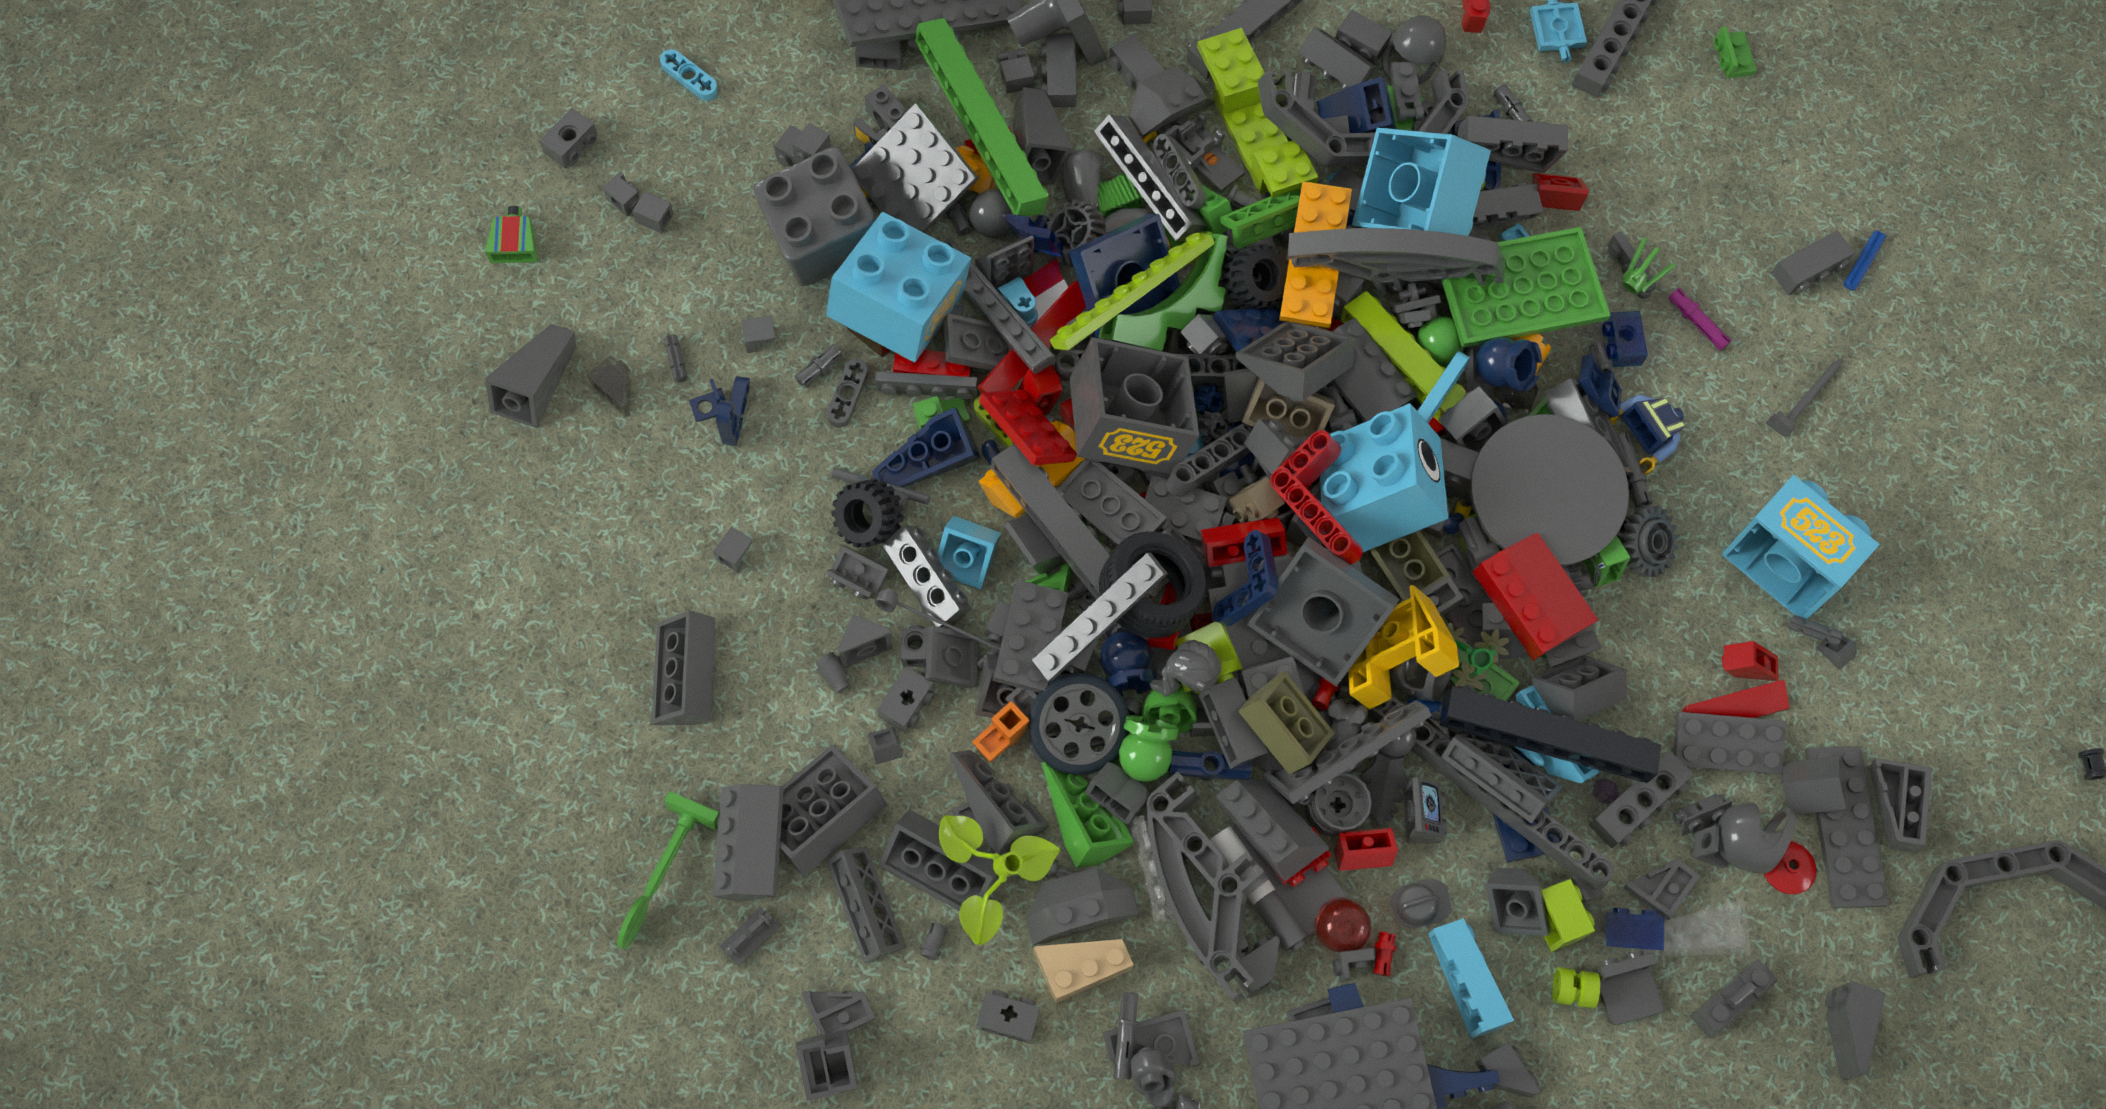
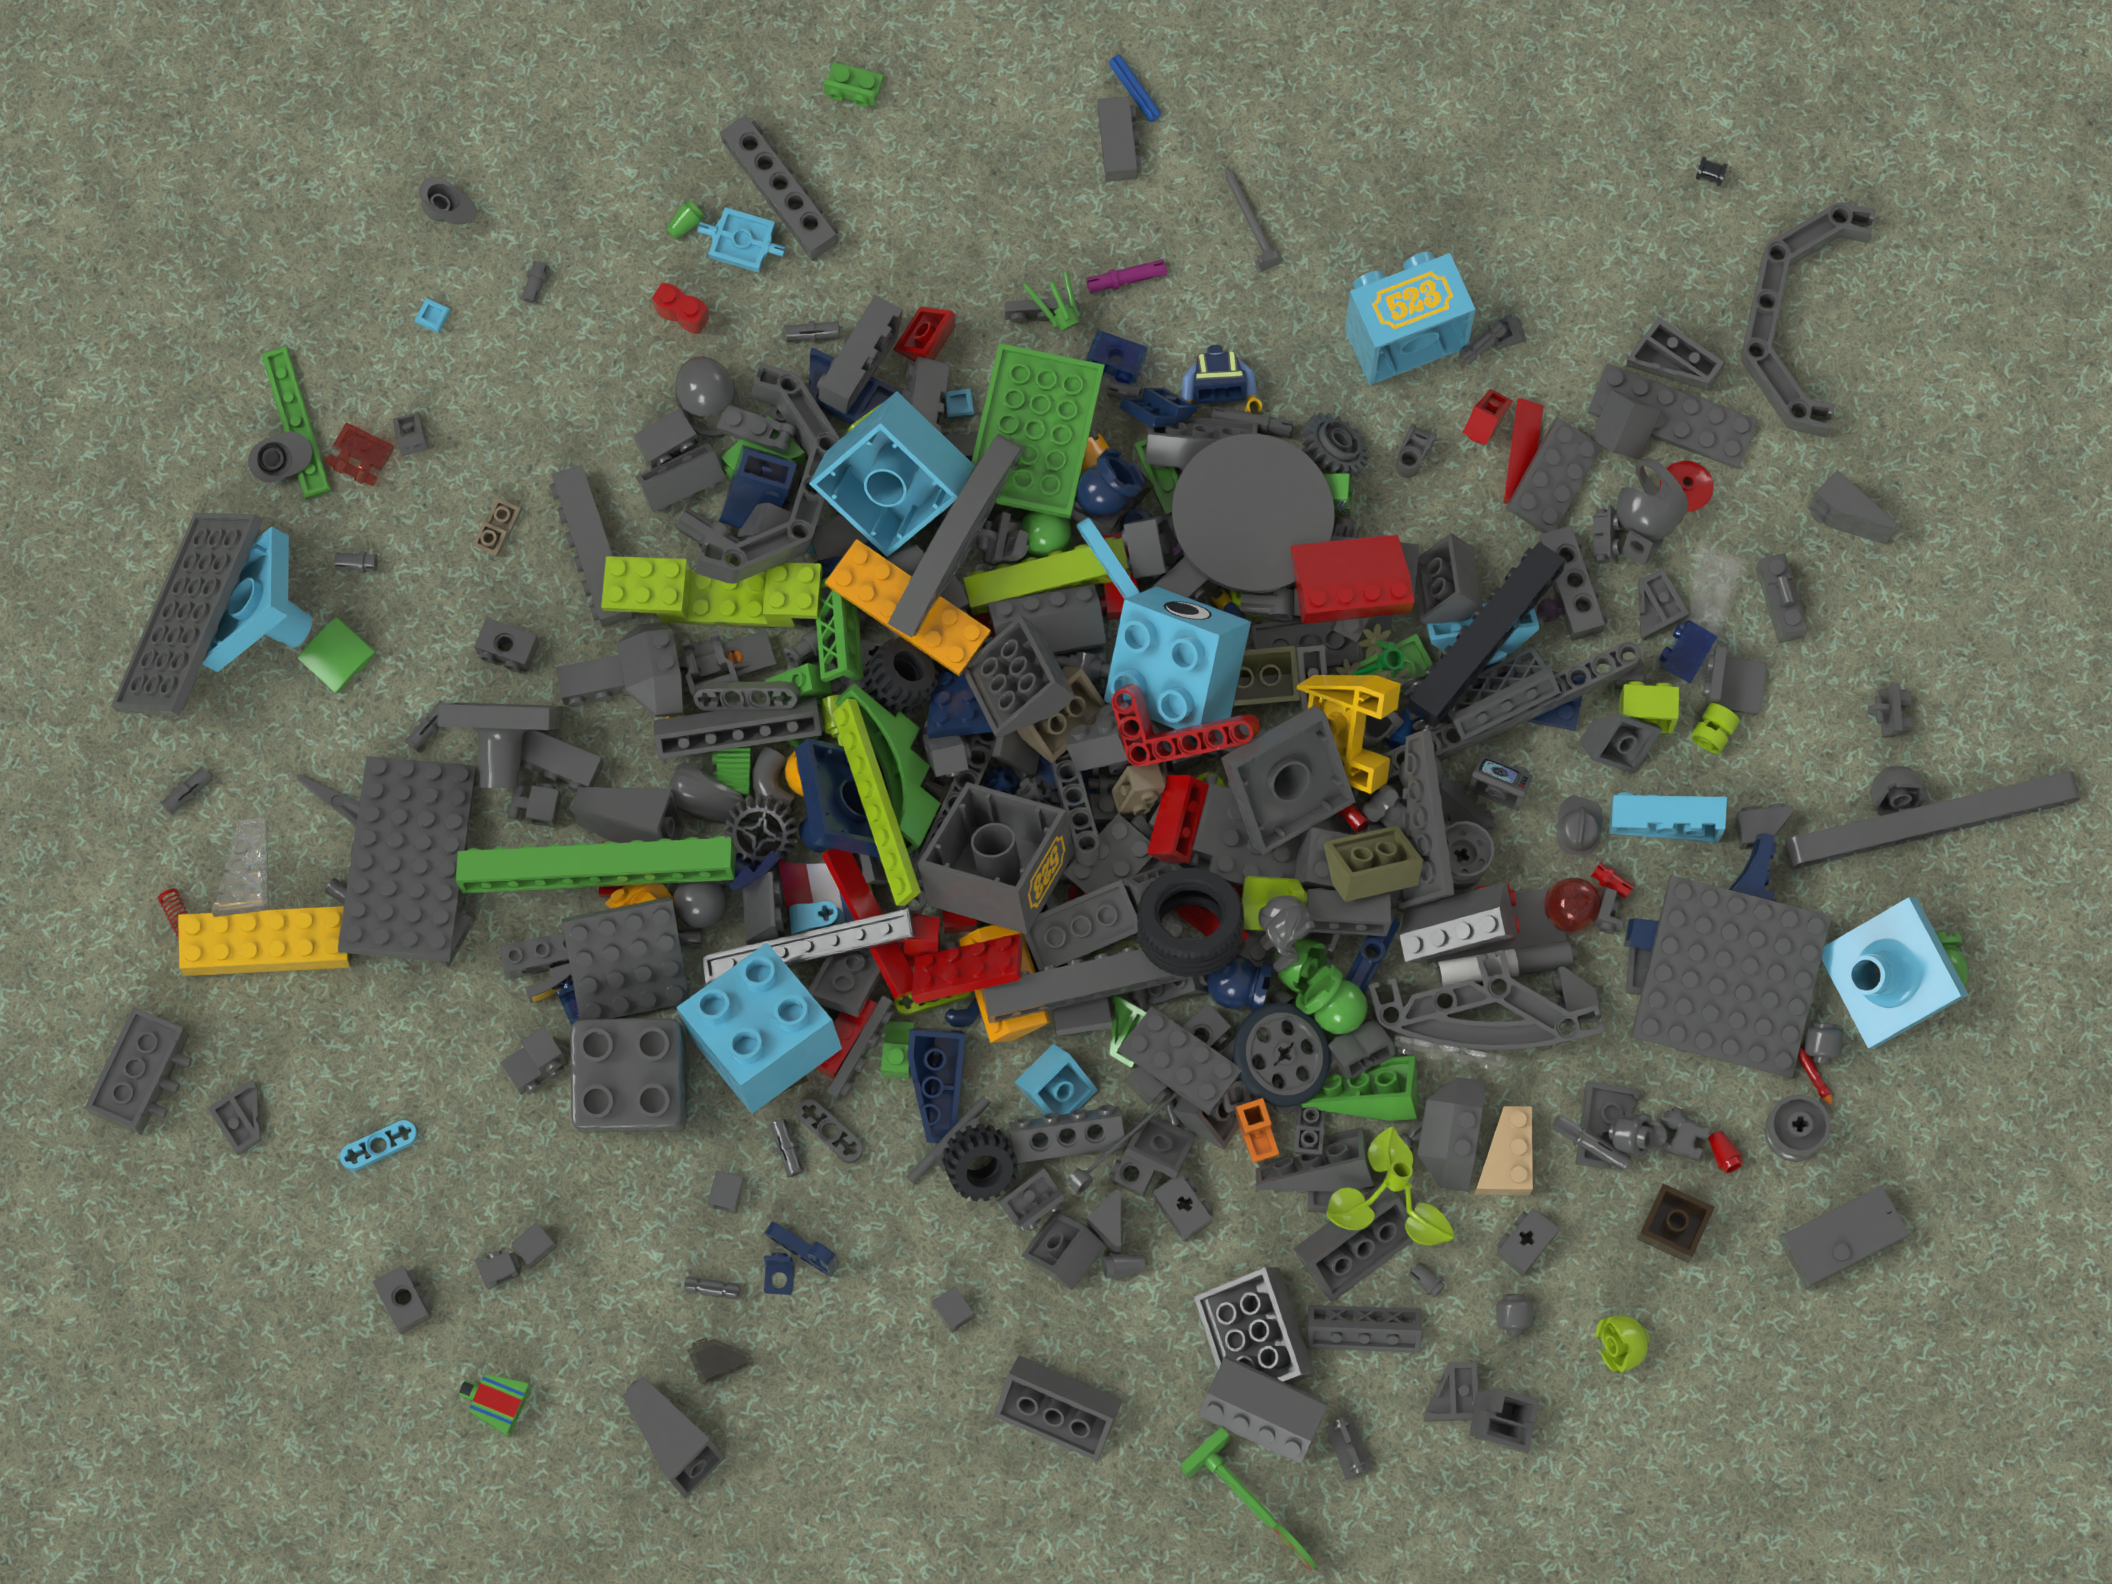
camera: 60 degrees left, 5 degrees up
(823, 617) = (1064, 1250): none -> dark grey slope
(885, 745) = (1216, 1247): dark grey slope -> none
(935, 1034) = (1514, 1313): none -> dark grey head
(1022, 779) = (1309, 1131): none -> dark grey slope
(1099, 616) = (1208, 985): plate -> none
(1260, 588) = (1237, 829): dark blue beam -> none
(1365, 849) = (1513, 850): red brick -> none
(1688, 612) = (1415, 447): none -> dark grey piece

